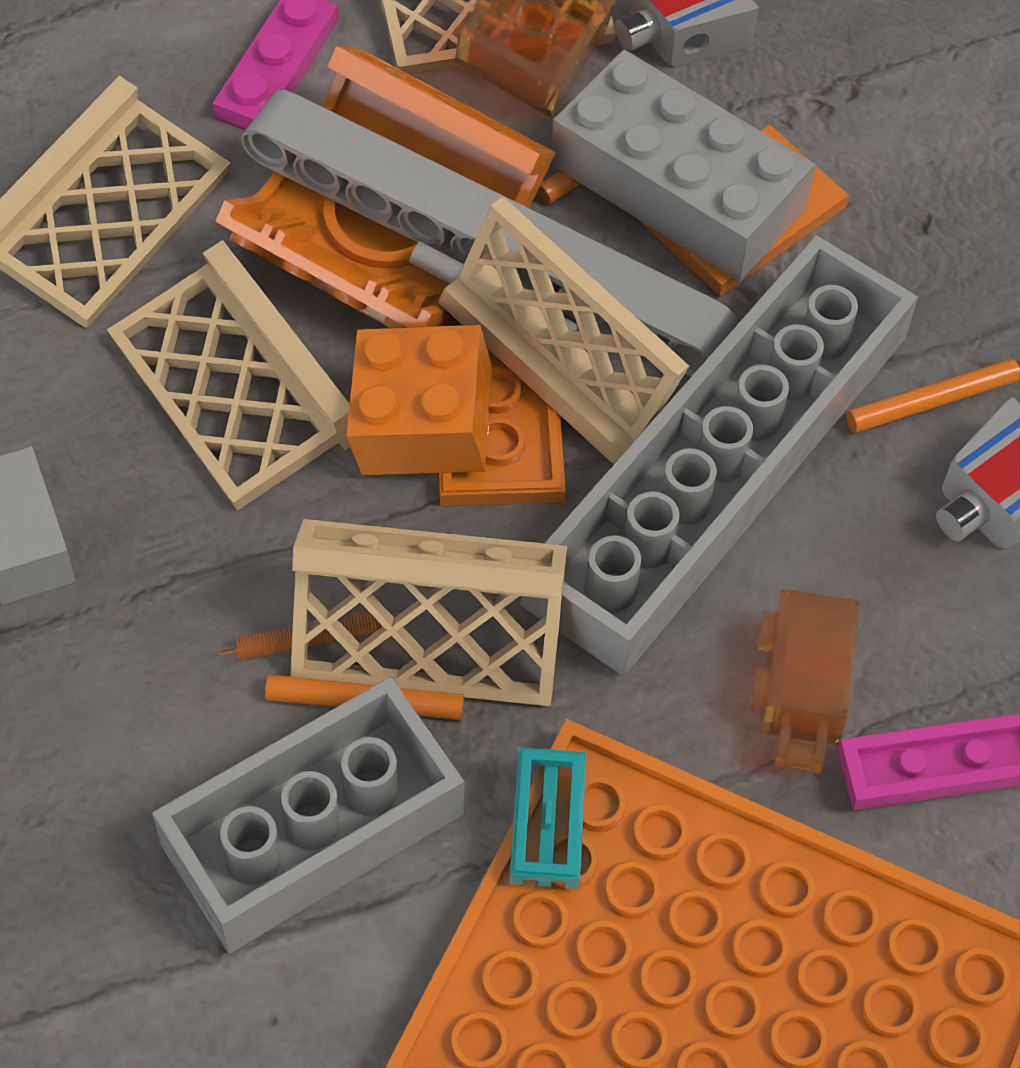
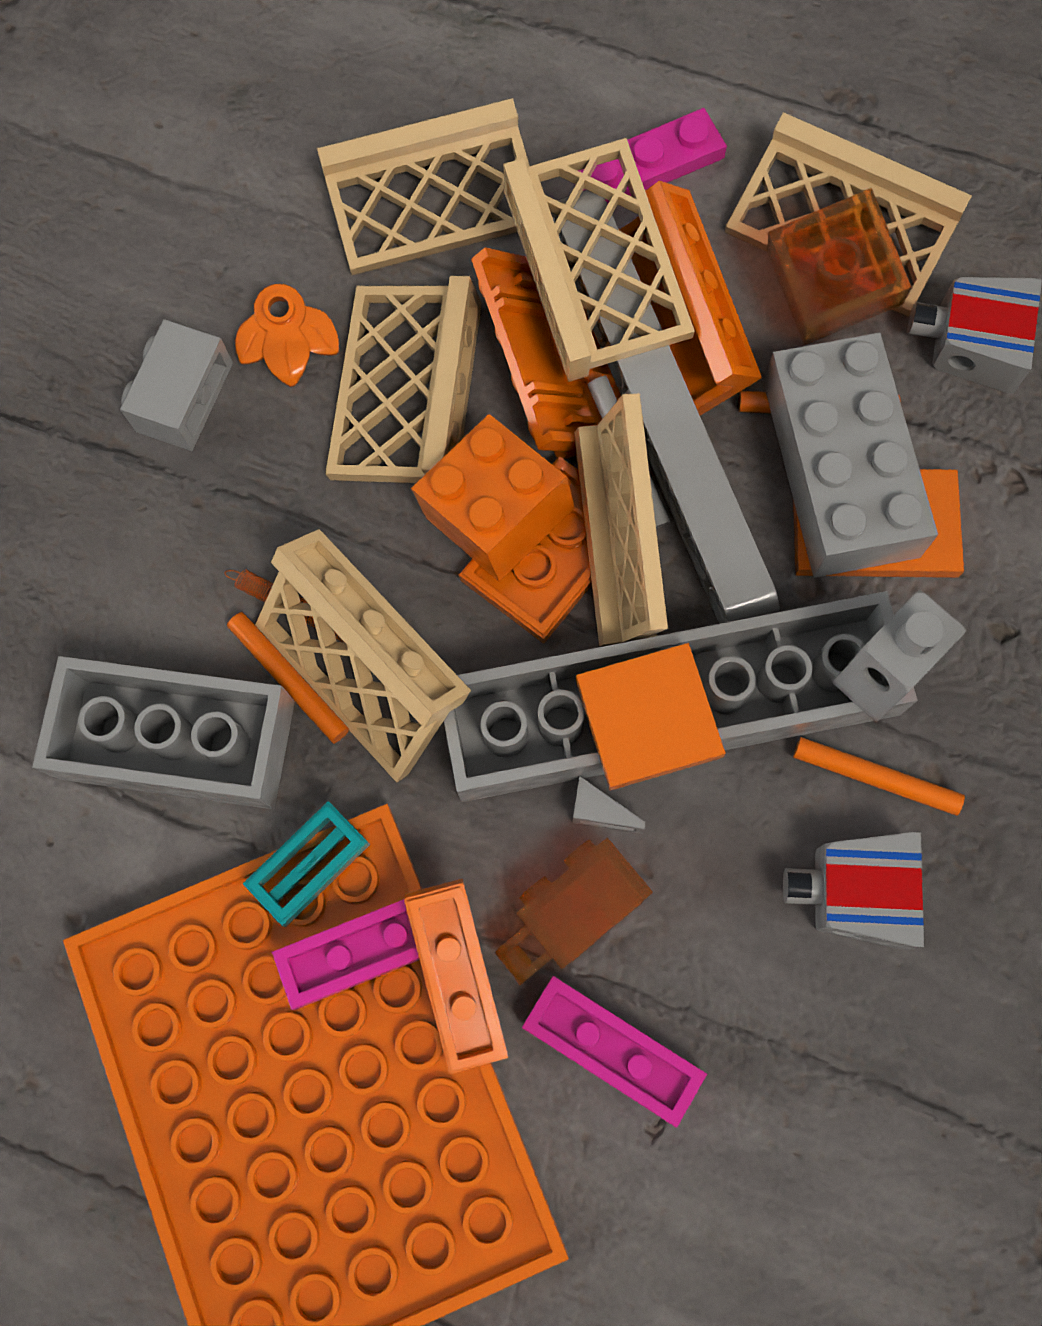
camera: 50 degrees right, 15 degrees up
(82, 420) = (287, 339): none -> orange plate
(298, 172) = (549, 257): none -> tan fence
(671, 834) = (346, 955): none -> dark pink plate
(730, 458) = (649, 716): none -> orange tile
(747, 587) = (600, 810): none -> light grey piece
(771, 787) = (455, 976): none -> orange tile
(879, 237) = (902, 653): none -> light grey torso

